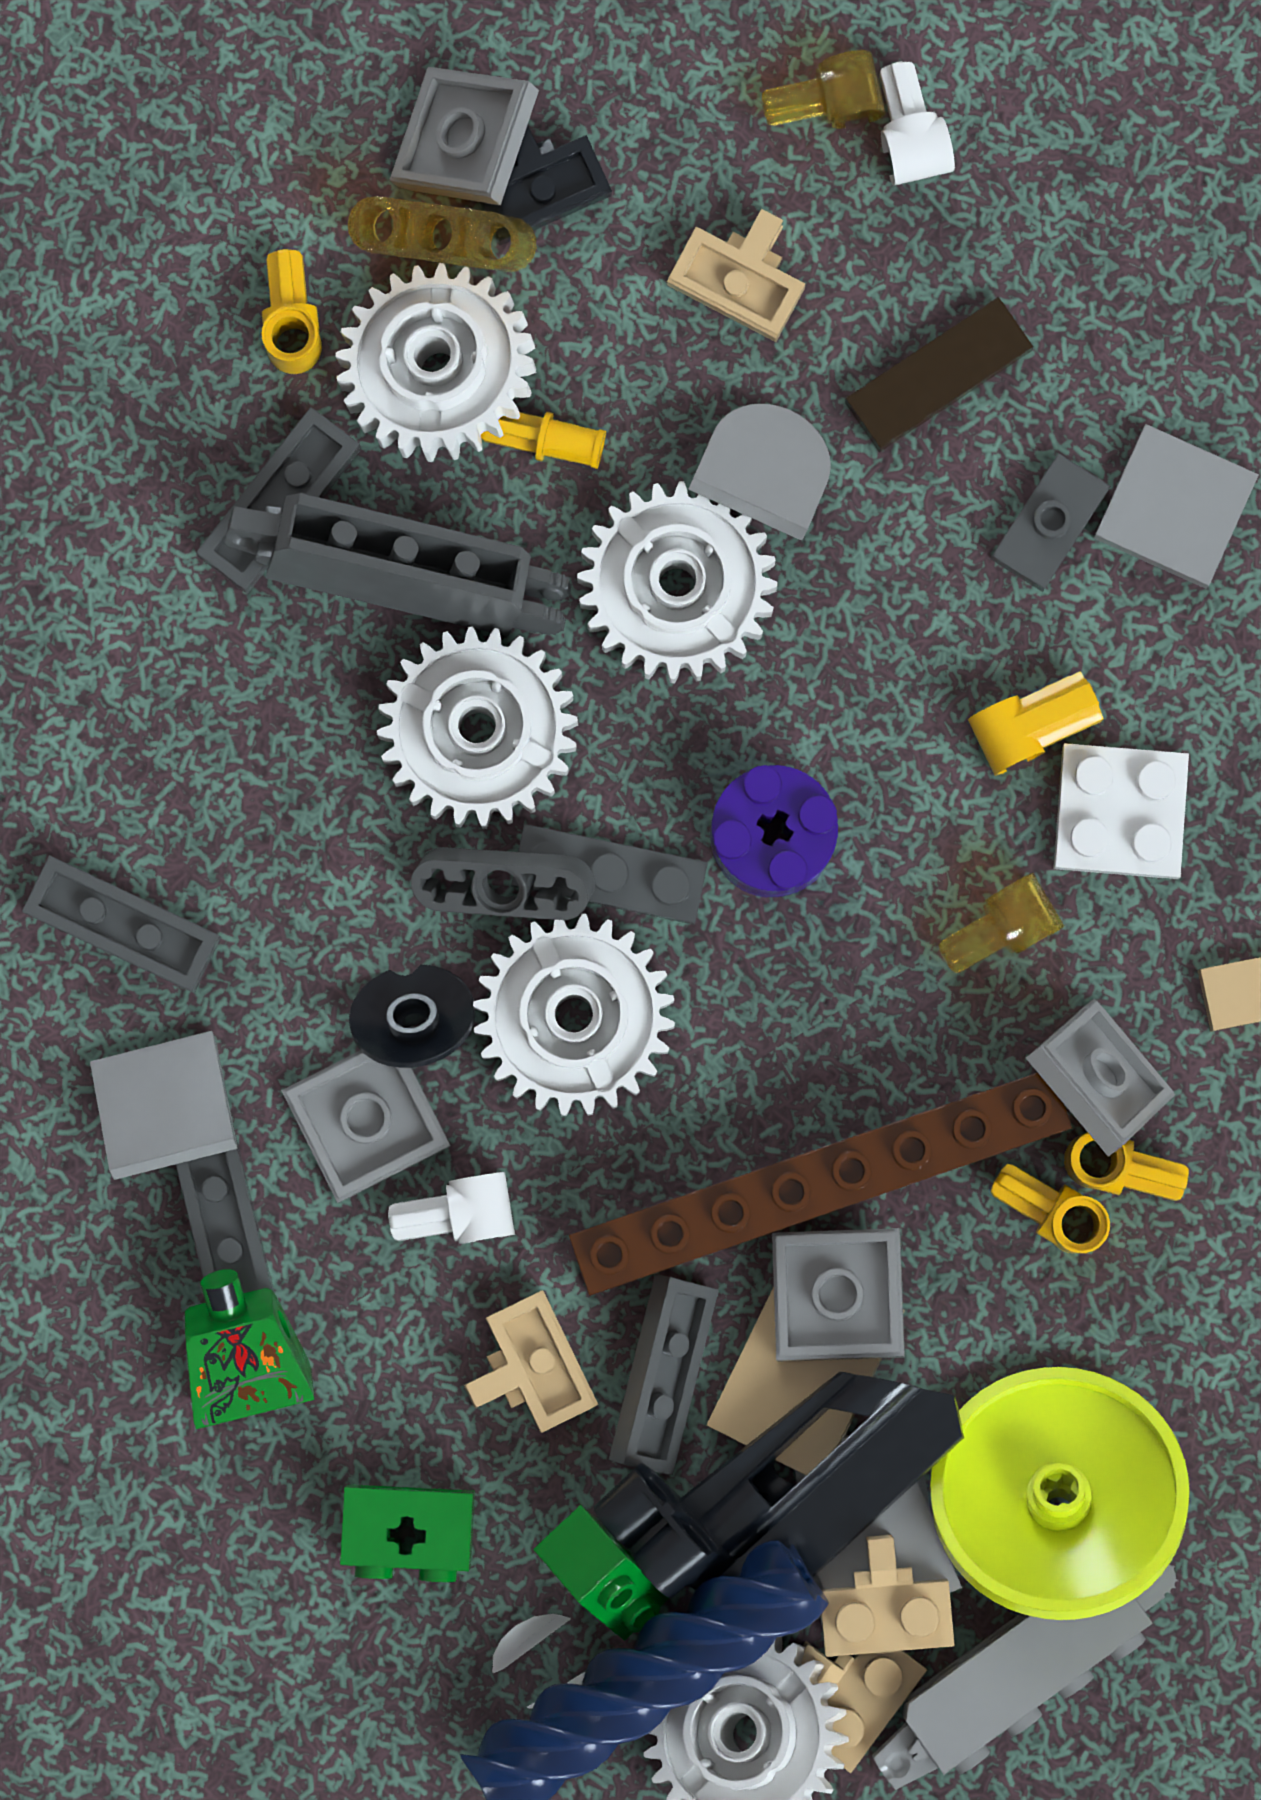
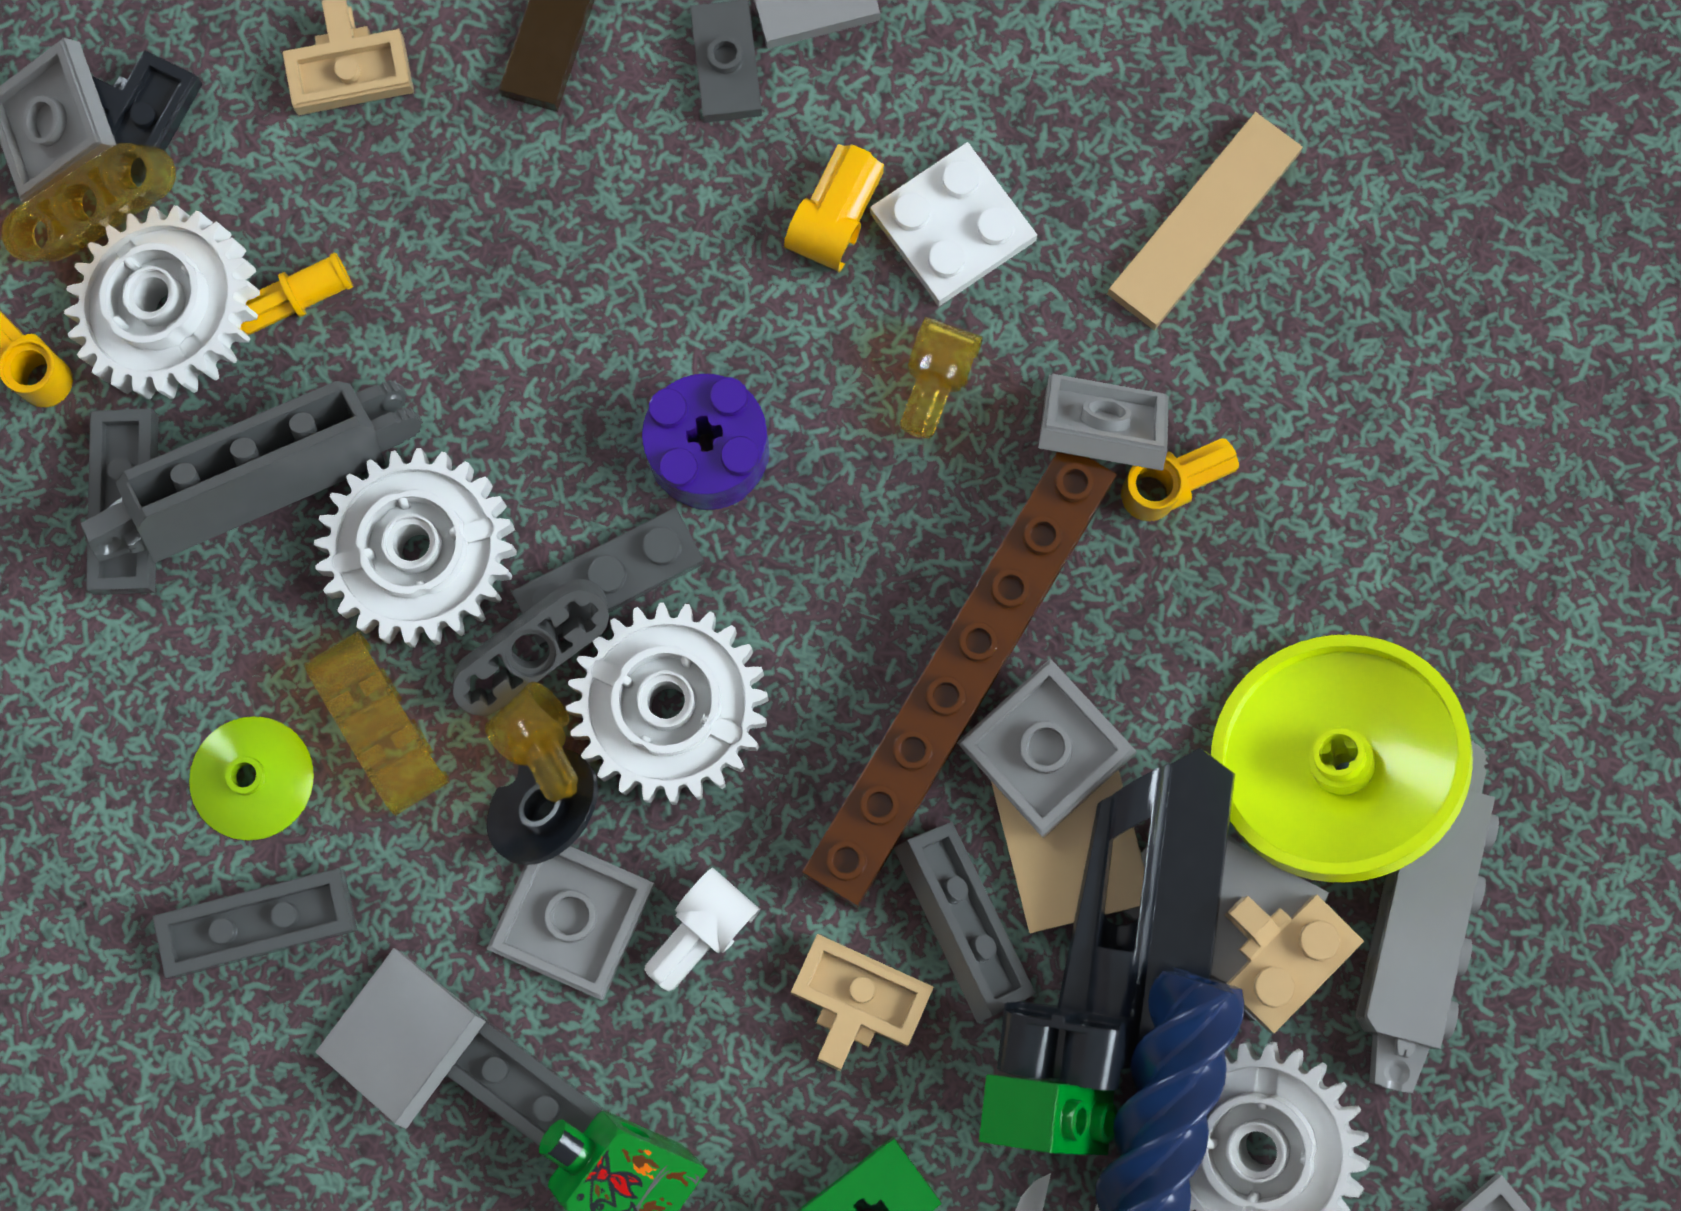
camera: 35 degrees left, 5 degrees down
(227, 829) = (280, 784): none -> lime dish
(336, 843) = (375, 724): none -> clear yellow beam
(449, 952) = (533, 736): none -> clear yellow axle
(669, 628) = (488, 361): white gear -> none
(766, 467) = (479, 182): light grey tile -> none
(870, 1691) = (1328, 1034): tan hinge -> none
(1048, 1207) = (1149, 551): yellow axle -> none

